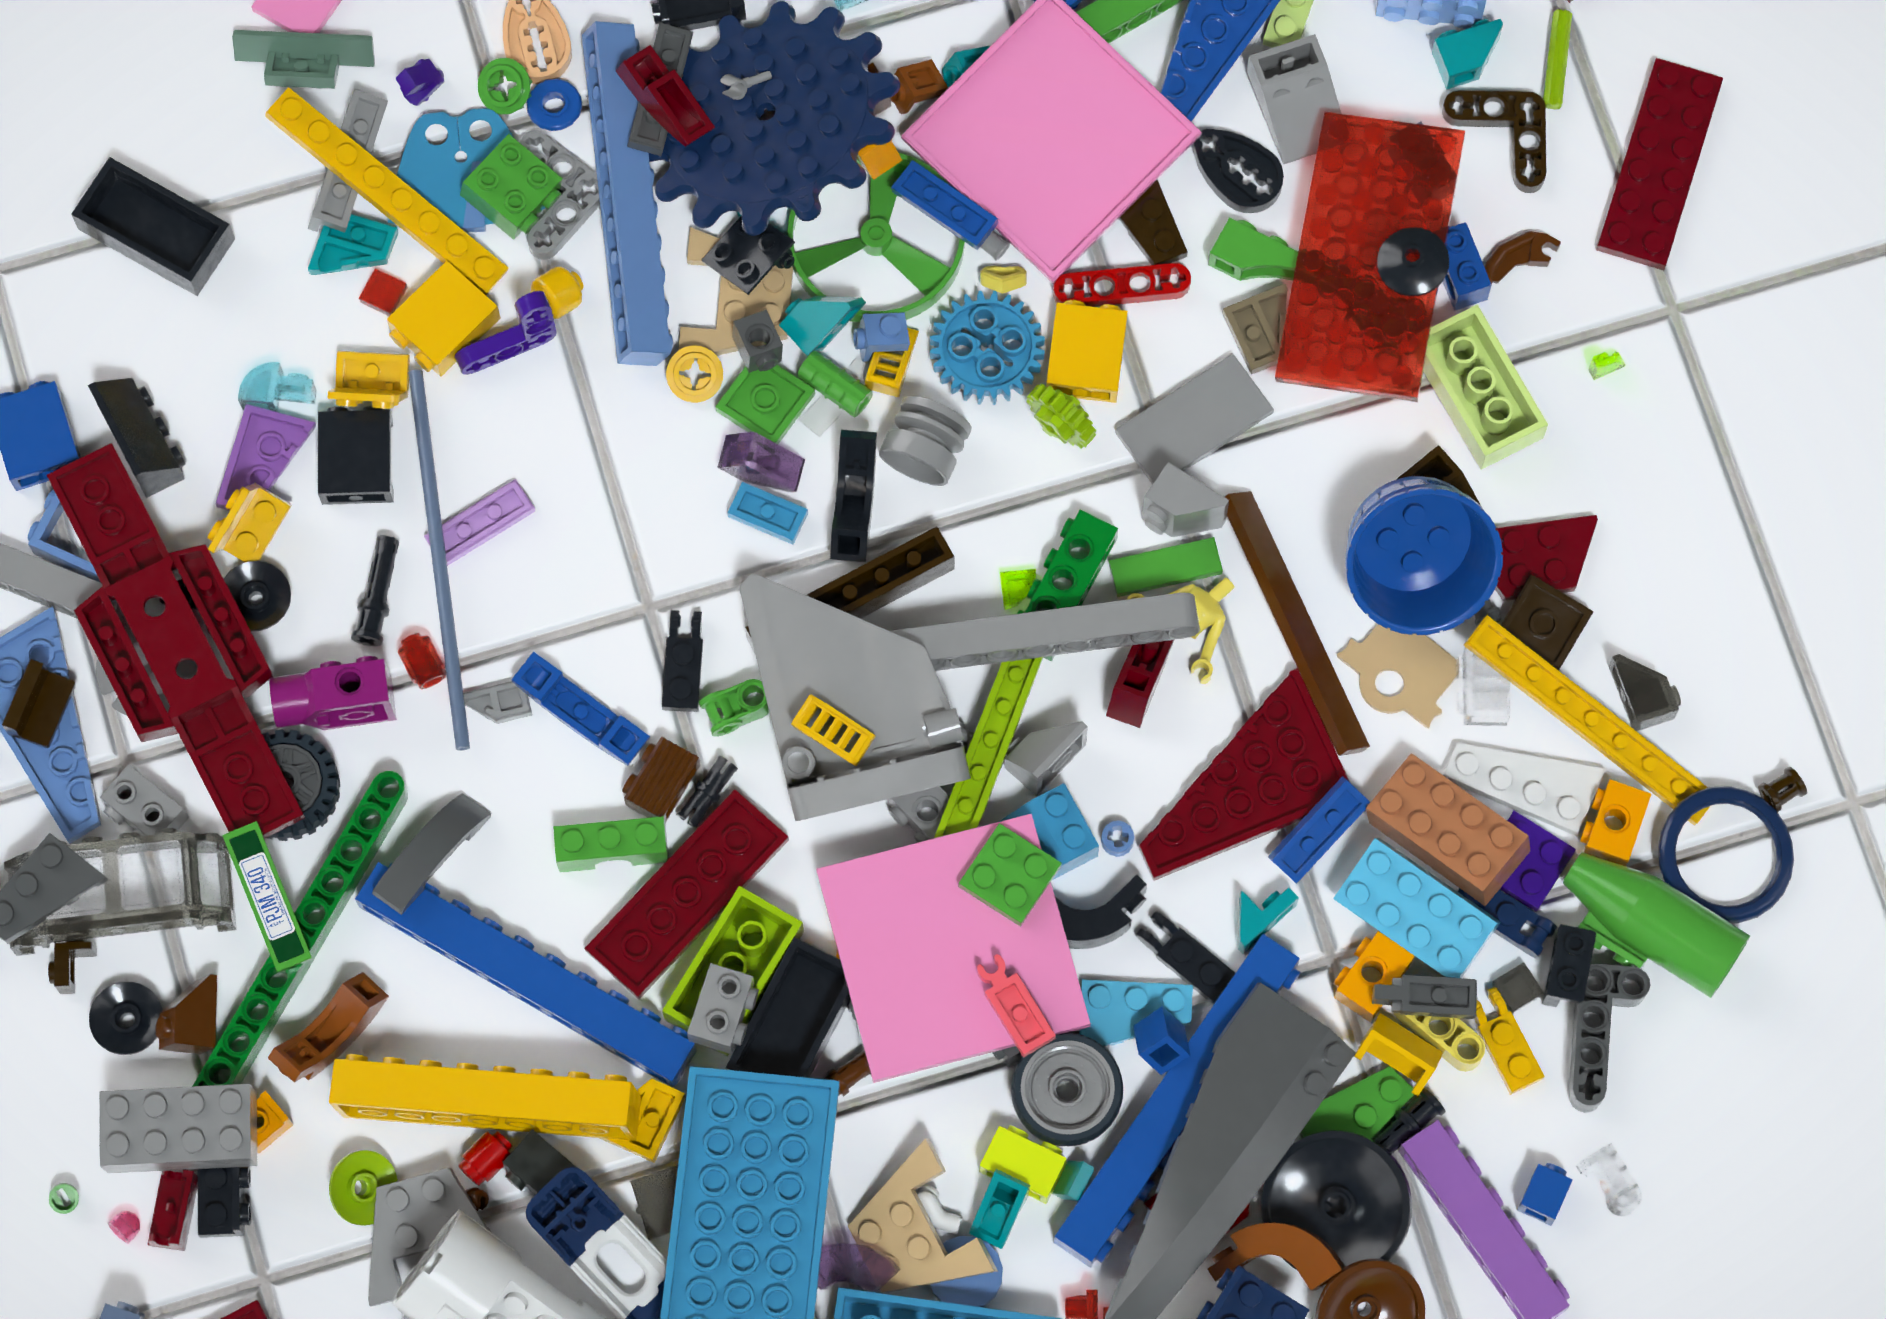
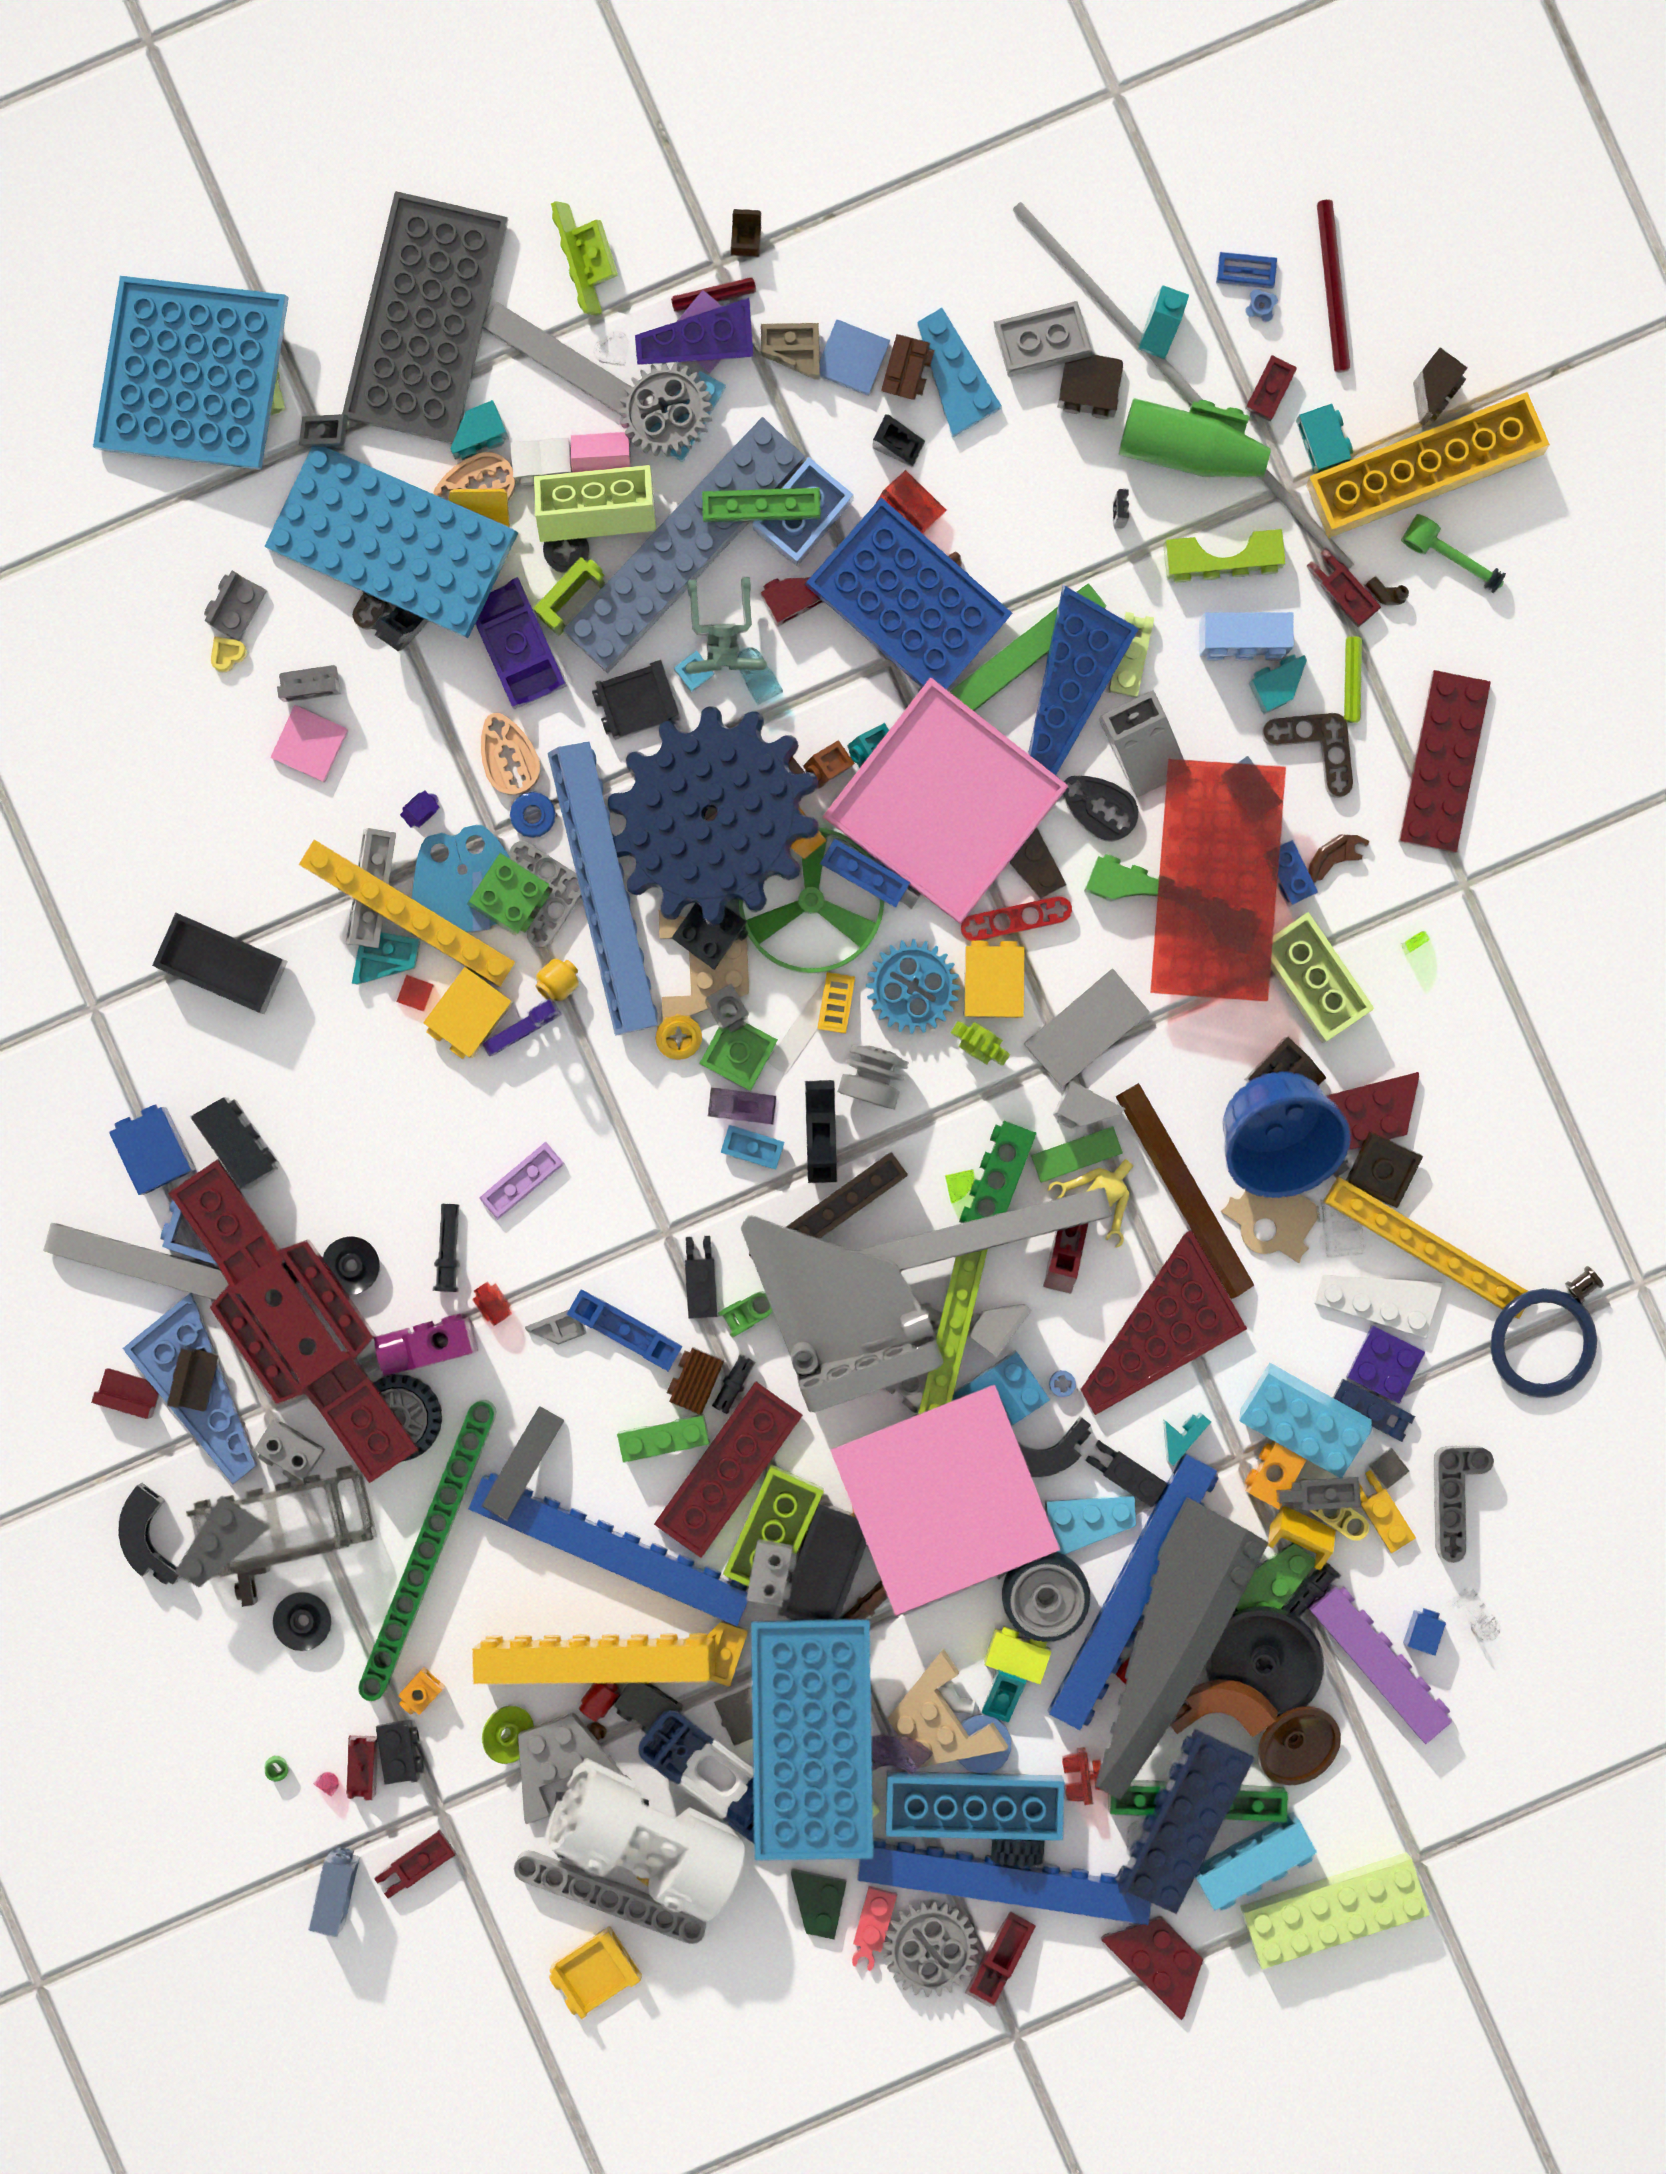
camera: 10 degrees left, 15 degrees up
(178, 1128) = (358, 1714): light grey brick -> none
(190, 1020) = (352, 1616): reddish brown slope -> none
(250, 523) = (337, 1208): yellow bracket -> none
(262, 450) = (335, 1147): medium lavender wing -> none
(267, 897) = (399, 1520): tile -> none
(268, 386) = (333, 1087): clear light blue brick -> none
(303, 58) = (319, 800): sand green bracket -> none
(332, 1031) = (462, 1616): dark orange arch -> none
(354, 456) = (413, 1137): black panel -> none
(372, 378) = (416, 1076): yellow bracket -> none
(439, 560) = (493, 1217): sand blue piece -> none
(492, 77) = (484, 815): bright green gear -> none
(664, 96) = (625, 810): dark red slope -> none
(672, 48) = (619, 796): dark grey tile -> none
(739, 86) = (683, 795): light grey hand -> none
(807, 712) = (825, 1345): yellow slope -> none
(818, 320) = (774, 981): teal slope -> none
(835, 383) = (793, 1032): bright green axle -> none
(881, 334) = (826, 986): medium blue bracket -> none
(1003, 278) = (919, 926): light yellow tile -> none
(1010, 874) = (983, 1439): bright green plate -> none
(1016, 1009) = (1001, 1549): coral plate -> none
(1073, 1180) = (1059, 1664): teal tile -> none
(1161, 1040) = (1115, 1550): blue brick -> none
(1259, 327) = (1132, 943): dark tan wing -> none
(1319, 830) = (1222, 1362): blue plate -> none
(1413, 277) = (1254, 903): black dish -> none
(1448, 829) = (1324, 1352): nougat brick -> none
(1569, 965) = (1428, 1451): black bracket -> none
(1629, 807) = (1461, 1344): light orange brick -> none
(1644, 693) = (1469, 1219): clear smoke slope -> none
(1653, 921) = (1489, 1407): bright green piece -> none

